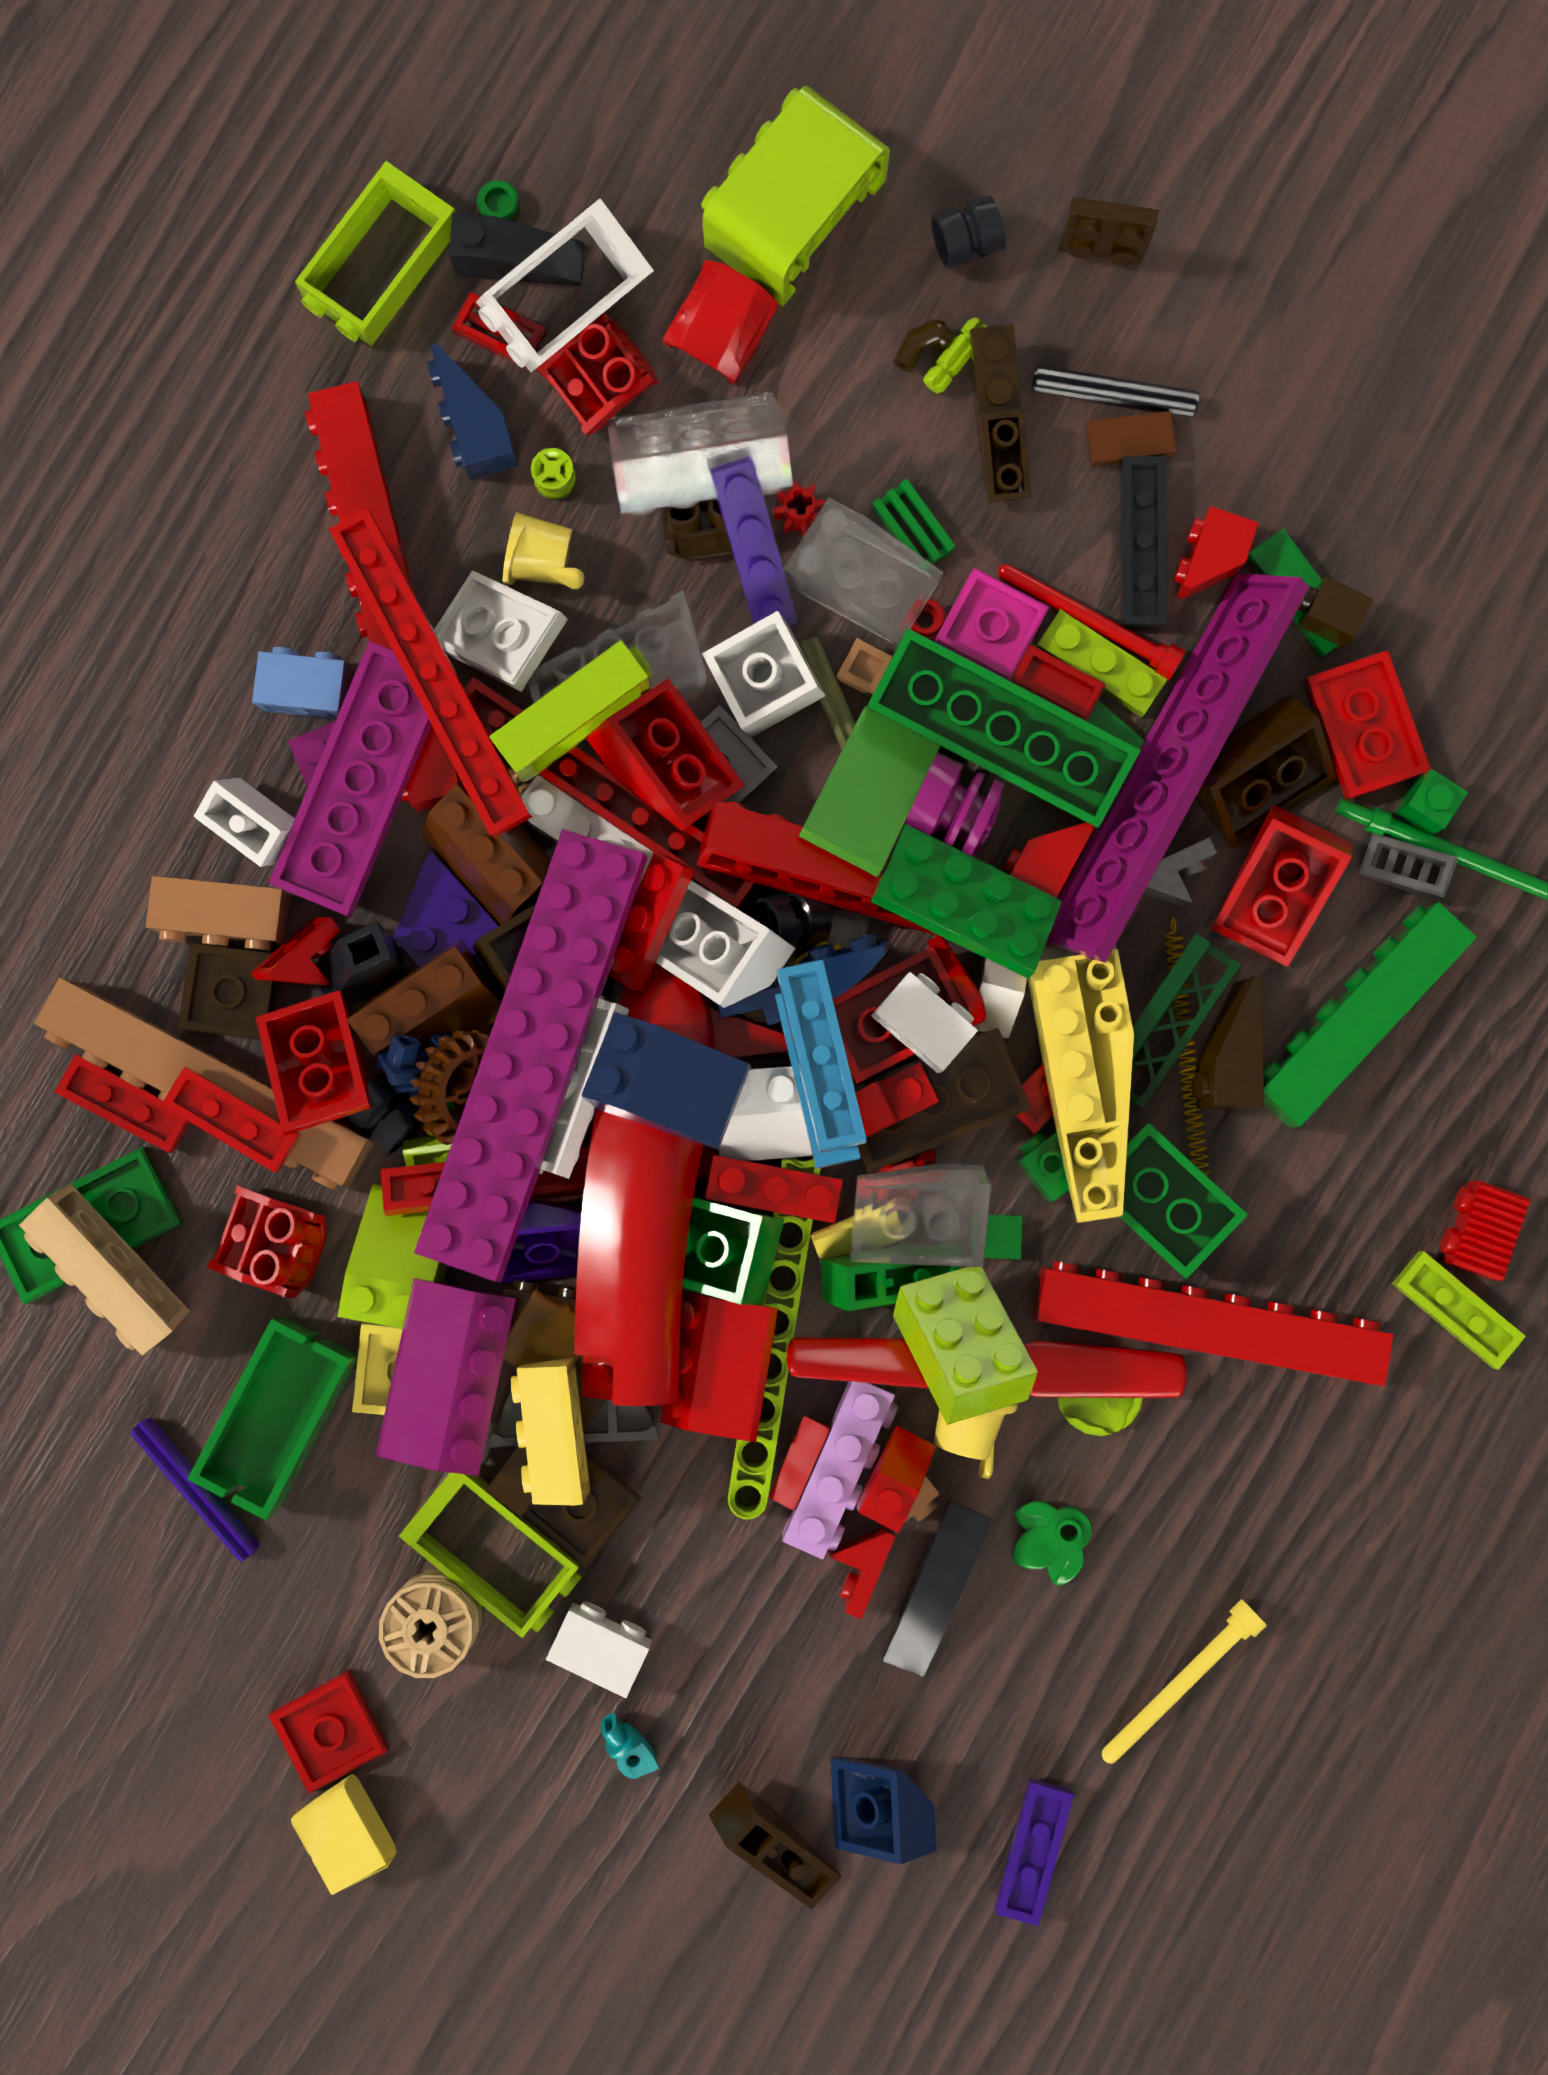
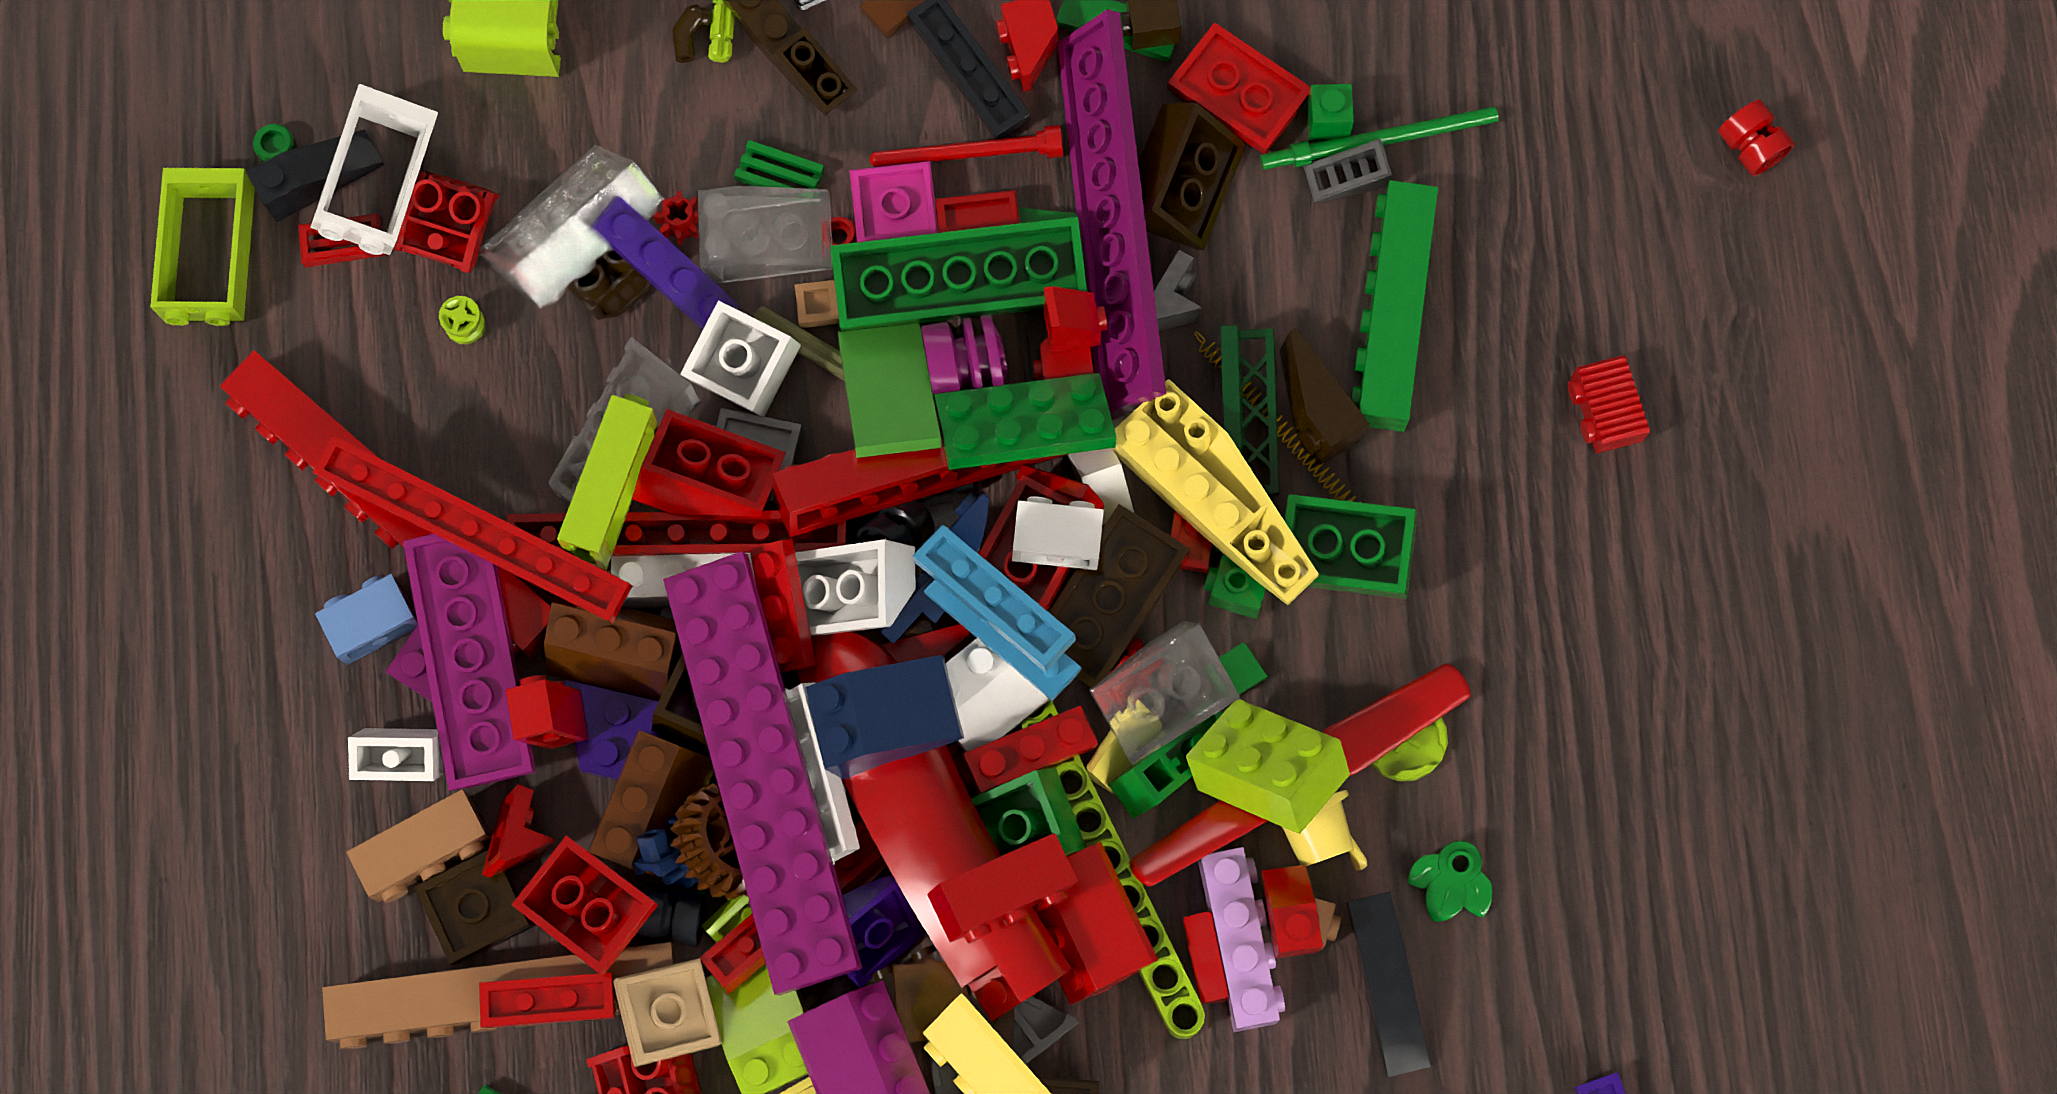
camera: 30 degrees left, 10 degrees down
(121, 1103) = (445, 1058): red plate -> none
(322, 1198) = (667, 1012): none -> tan tile
(363, 963) = (570, 804): black slope -> none
(392, 873) = (546, 713): none -> red brick
(478, 423) = (373, 319): dark blue slope -> none
(498, 630) = (503, 465): white tile -> none
(539, 553) = (495, 386): light yellow hat -> none
(660, 1304) = (1003, 889): none -> red brick
(722, 320) = (517, 115): red slope -> none
(868, 1556) = (1317, 997): red slope -> none
(895, 1098) = (1082, 611): red slope -> none
(1071, 839) = (1072, 319): none -> red slope
(1125, 676) = (1029, 175): lime plate -> none
(1212, 1325) = (1453, 622): red brick -> none
(1242, 1624) = (1649, 842): light yellow piece -> none
(1282, 885) = (1262, 251): red slope -> none
(1458, 1310) = (1635, 479): lime plate -> none

